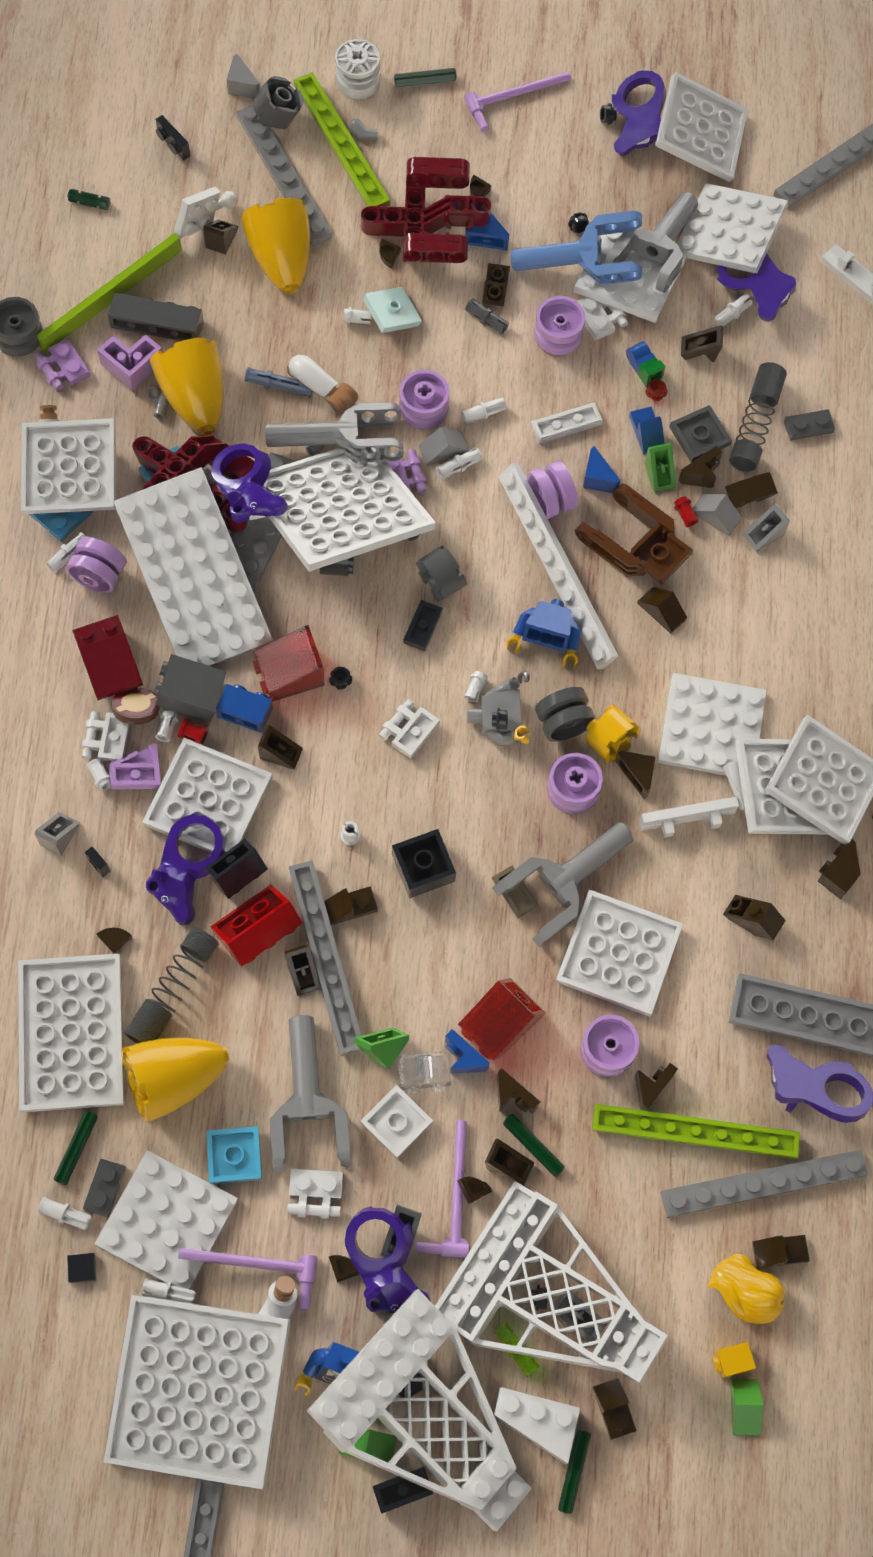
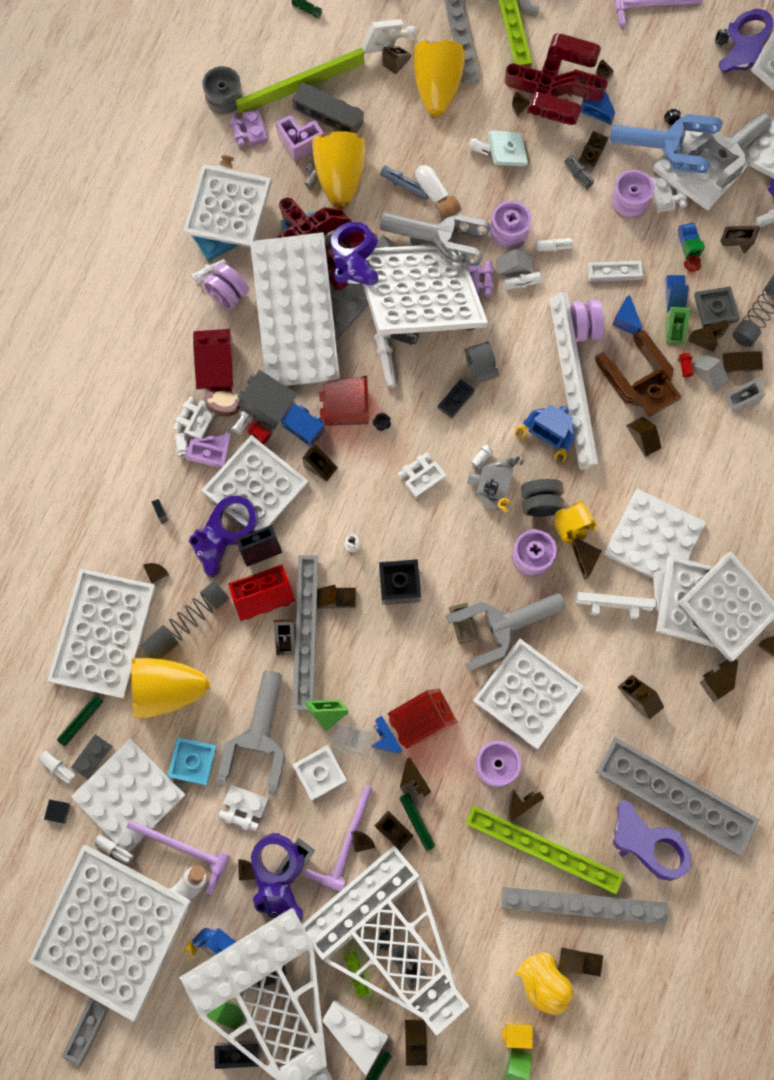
camera: 20 degrees right, 5 degrees up
(57, 832) = (137, 480): light grey slope -> none
(318, 593) = (384, 351): none -> white pin

